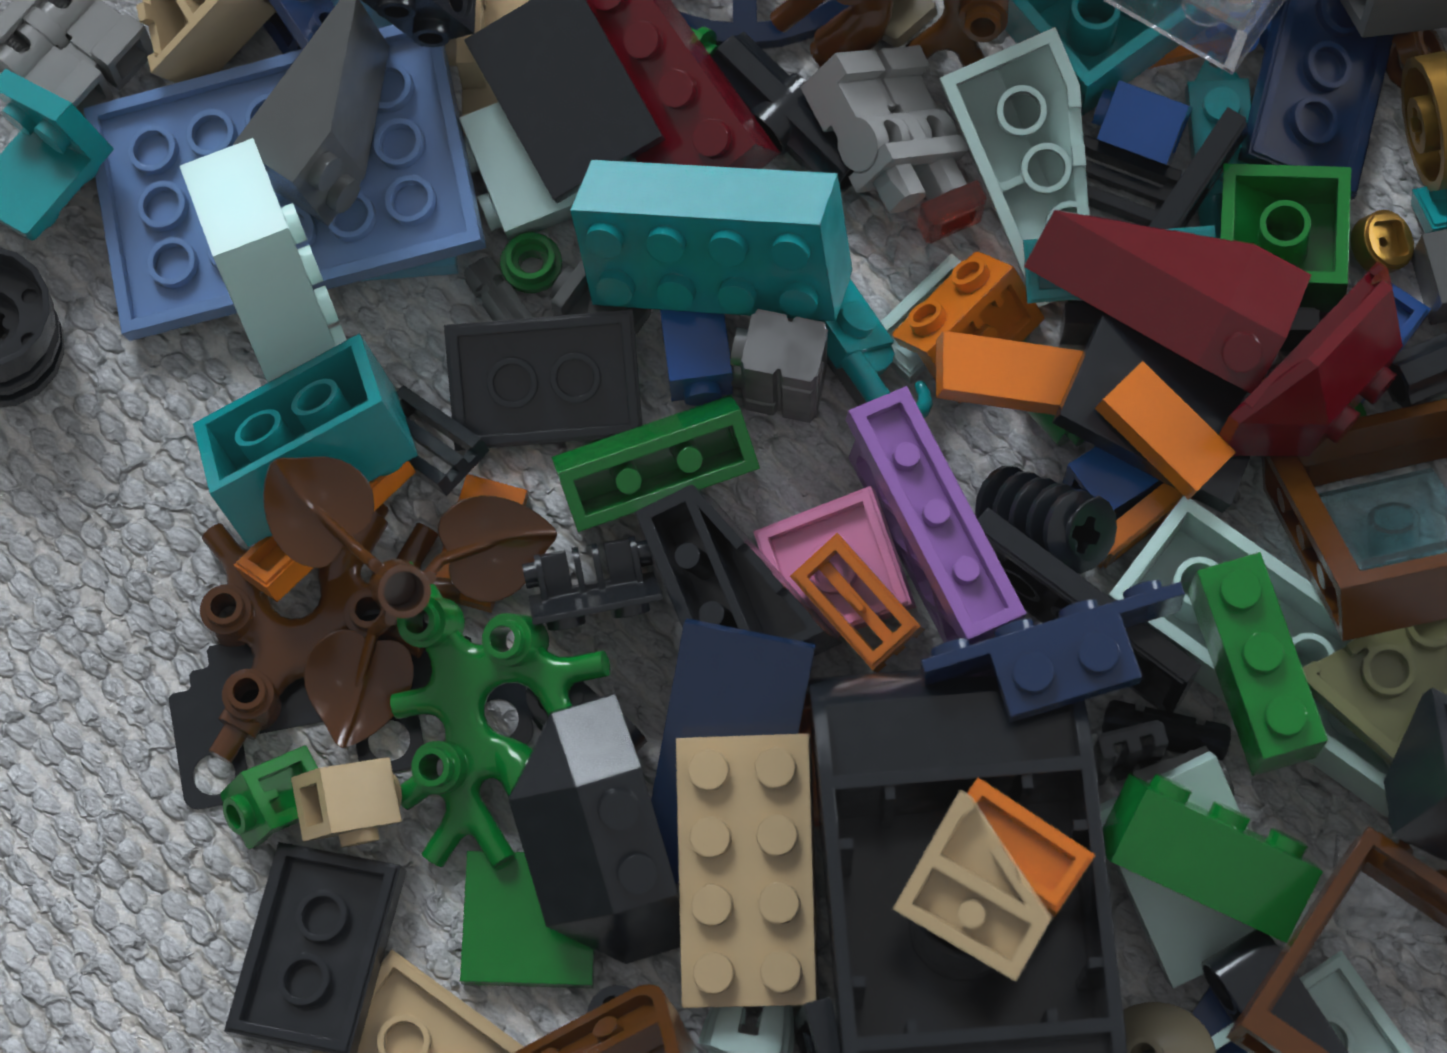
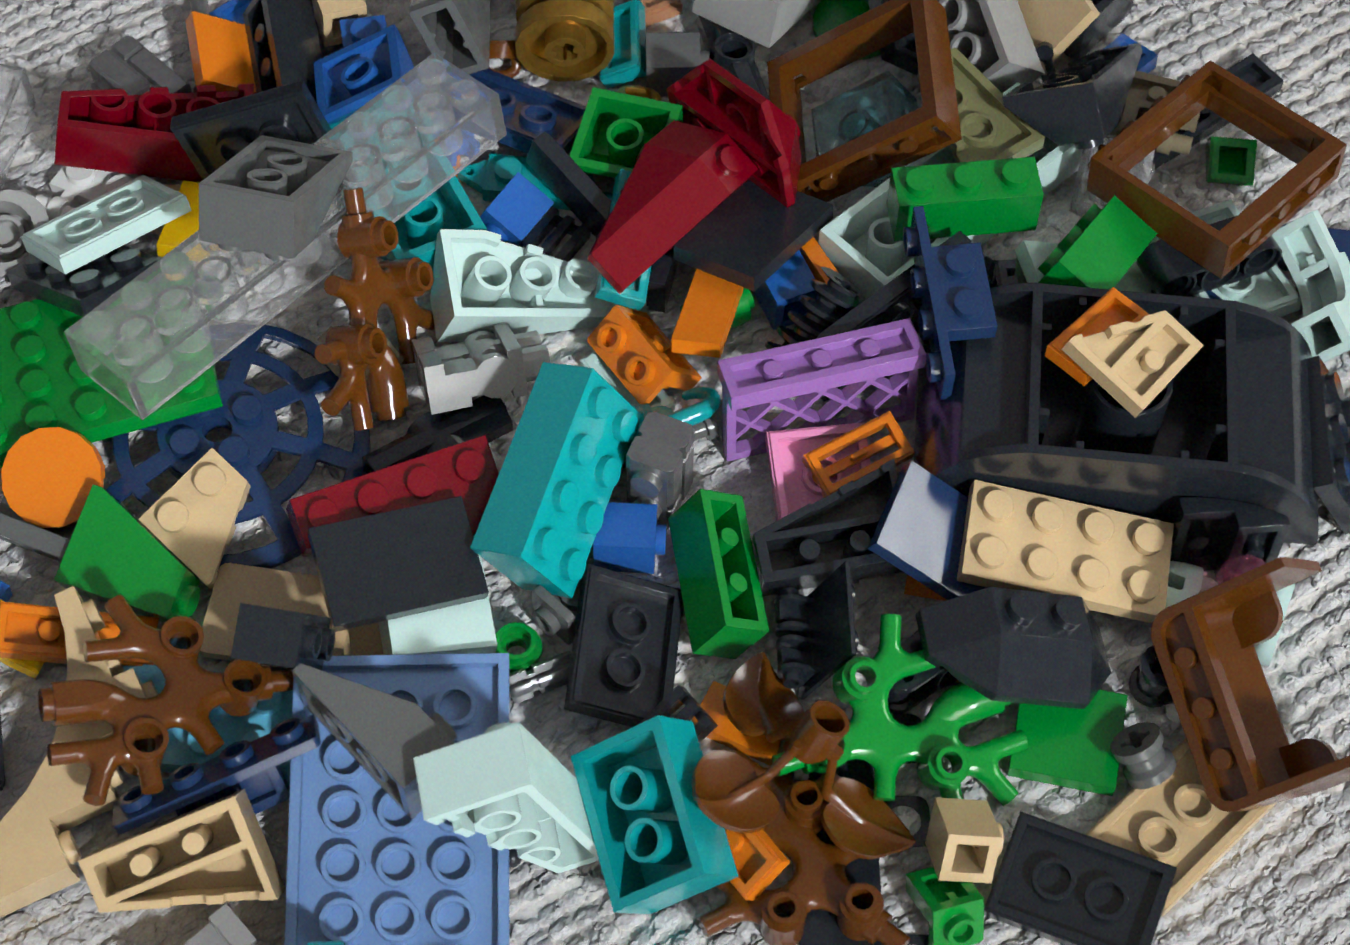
camera: 85 degrees left, 15 degrees down
(499, 1006) = (1143, 755): none -> dark grey wheel
(951, 212) = (551, 337): clear red tile -> none
(1165, 430) = (776, 222): orange tile -> none

